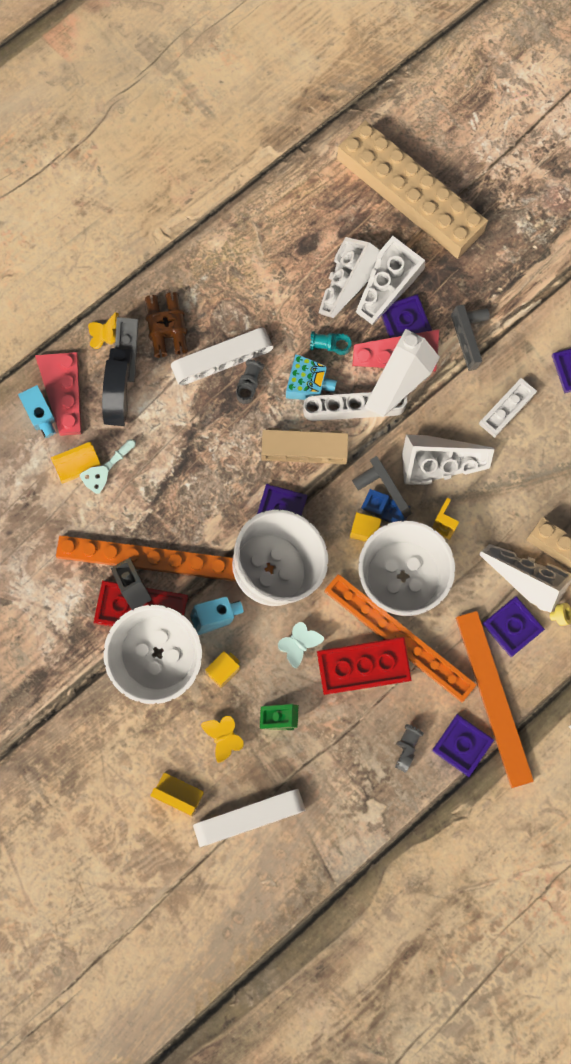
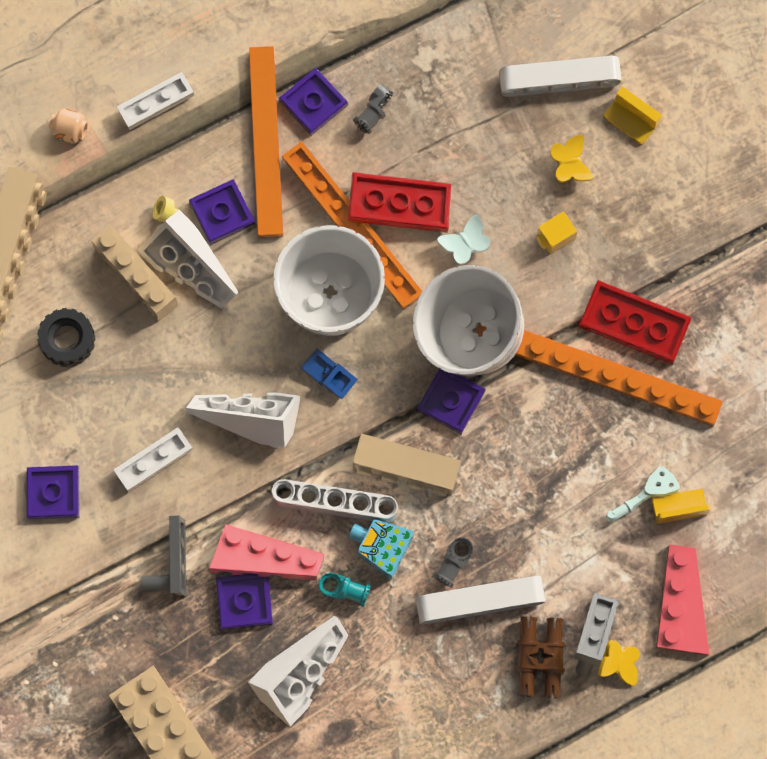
camera: 165 degrees left, 0 degrees up
(34, 405) = (716, 576): medium azure torso -> none
(115, 387) = (616, 584): black arch -> none
(130, 584) = (642, 343): dark grey slope -> none
(131, 649) = (641, 235): white piece -> none
(206, 615) = (562, 287): medium azure torso -> none
(279, 717) = (505, 168): green slope -> none
(364, 526) = (358, 352): yellow brick -> none
(376, 472) = (324, 412): dark grey piece -> none
(390, 278) = (249, 651): white wedge -> none
(406, 369) = (267, 520): white wedge -> none
(444, 524) = (272, 336): yellow panel -> none

